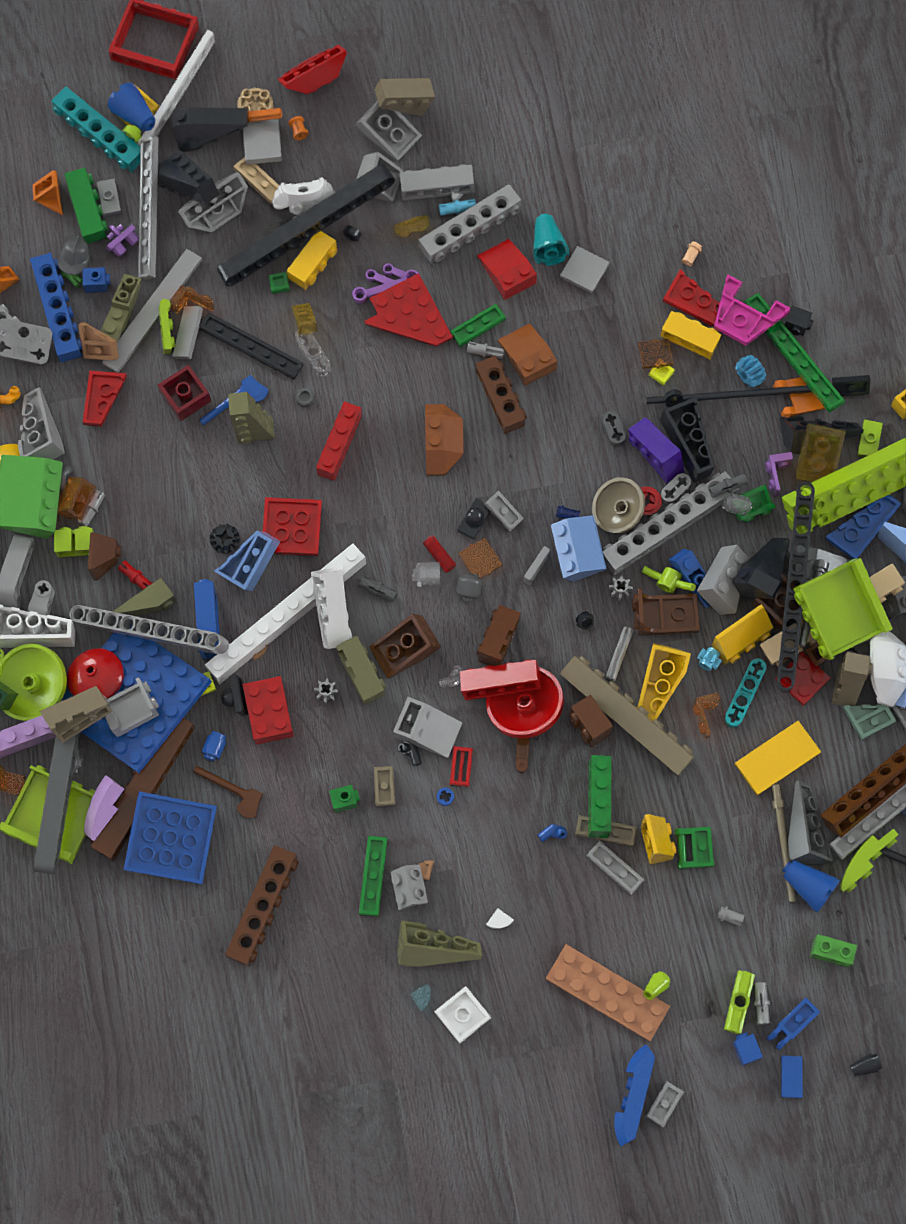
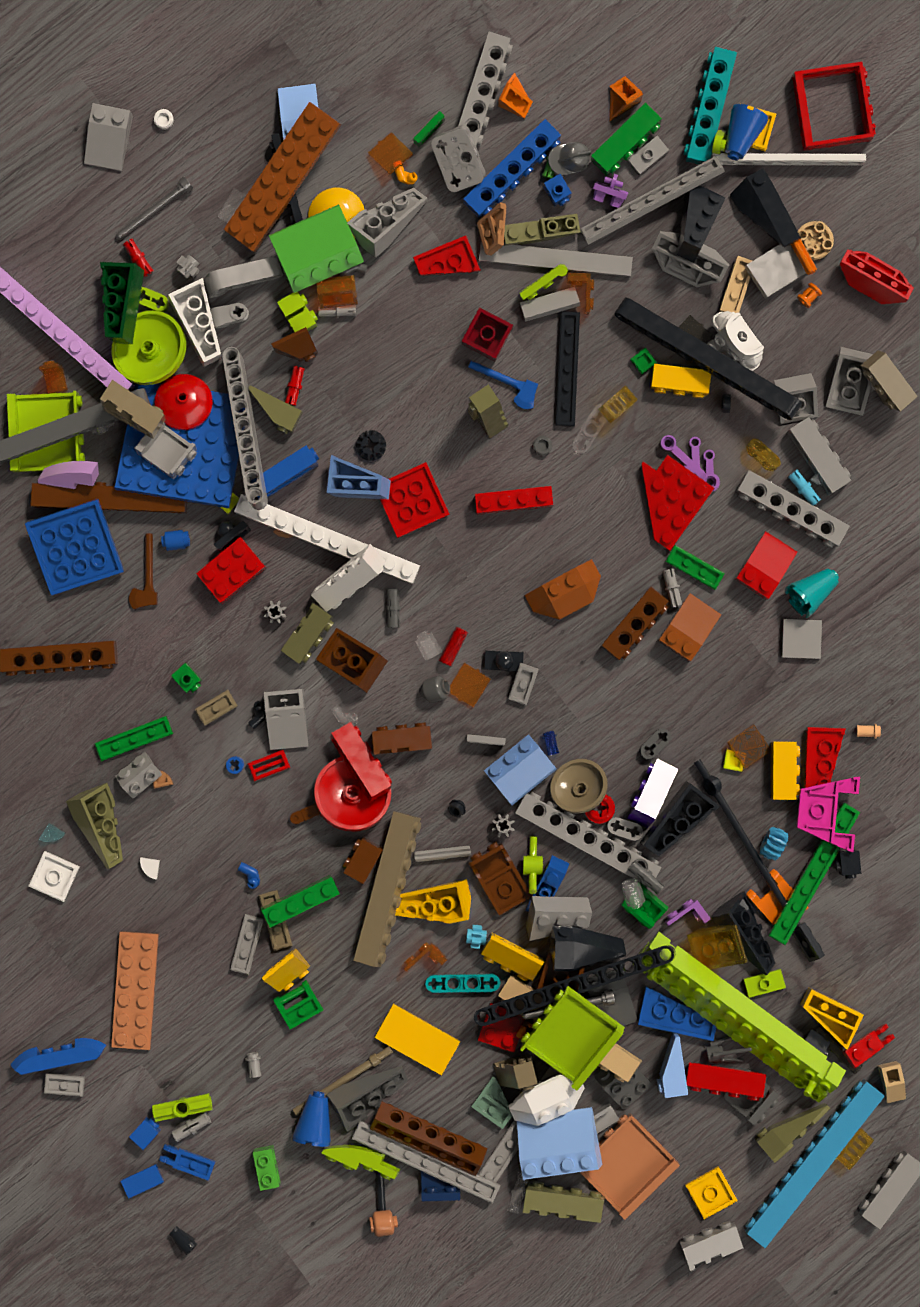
camera: 60 degrees right, 15 degrees up
(658, 983) = (160, 1030): lime cone -> none

